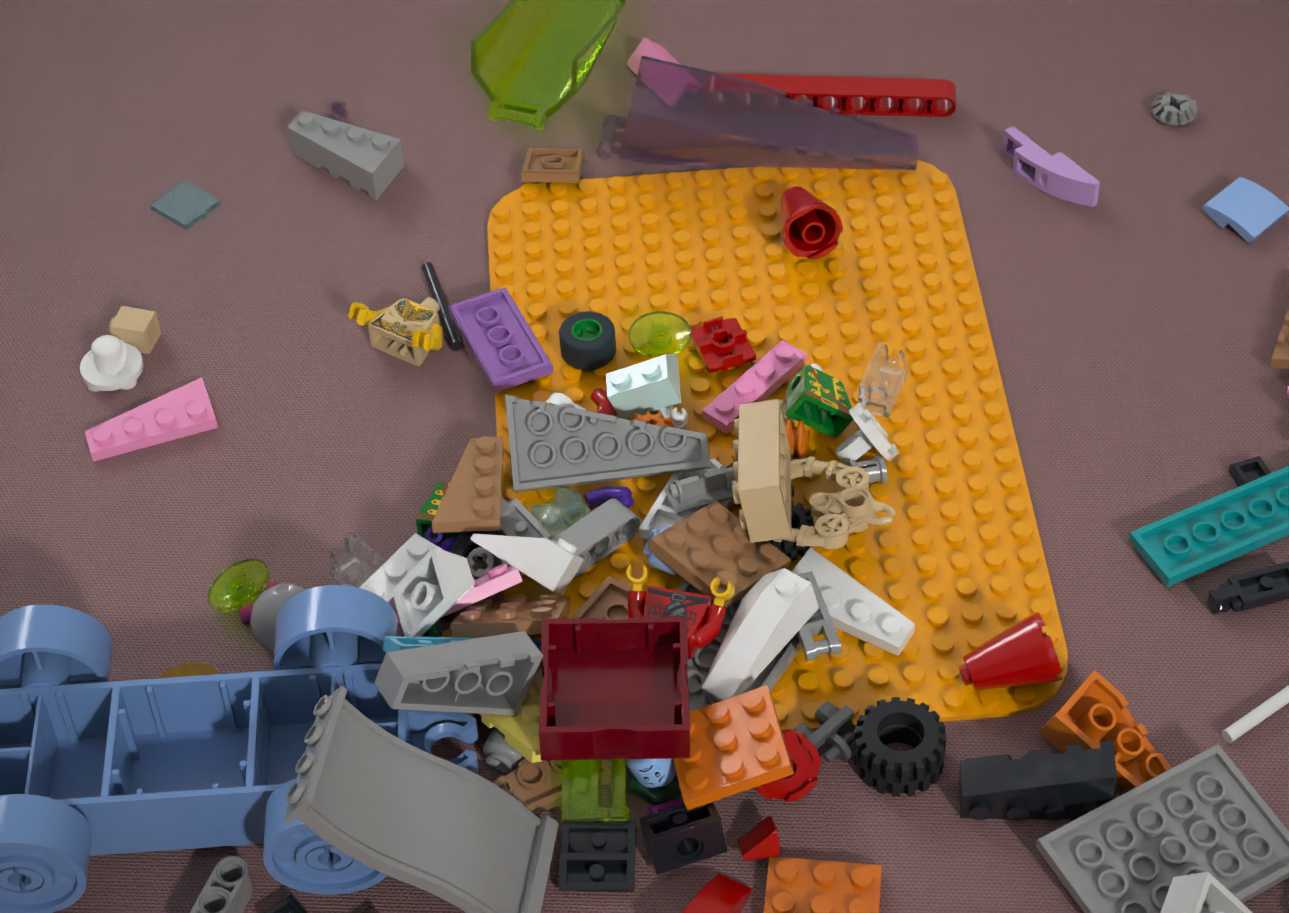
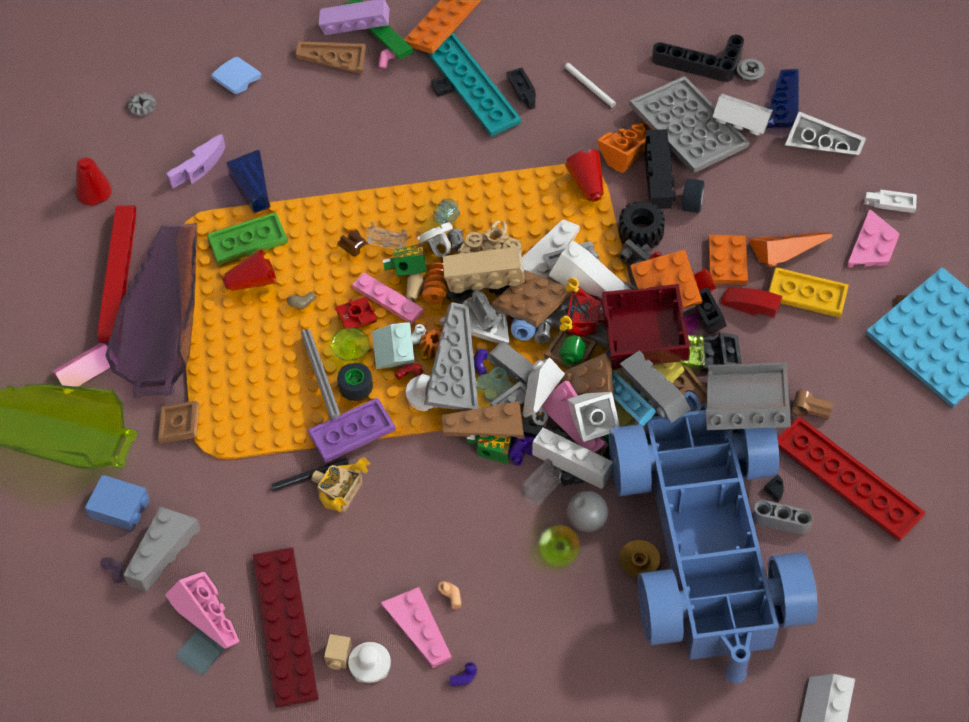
camera: 95 degrees left, 10 degrees up
(55, 470) = (466, 677): none -> dark purple arm
(198, 282) = (285, 627): none -> dark red plate
(206, 454) = (451, 592): none -> light nougat arm
(245, 197) = (197, 602): none -> bright pink wedge
(428, 112) = (117, 503): none -> medium blue brick
(597, 599) = (572, 350): none -> green head
(606, 299) = (320, 374): none -> light grey axle
(662, 578) = (544, 331): none -> light grey bush
(753, 286) = (301, 302): none -> dark tan arm
(861, 339) = (349, 246): none -> reddish brown piece
(888, 225) = (247, 238): none -> bright green tile
(929, 457) = (446, 212): none -> clear light blue head
(974, 839) = (693, 195): none -> black wheel
(997, 53) = (91, 183): none -> red cone
(1004, 223) = (250, 180): none -> clear blue slope

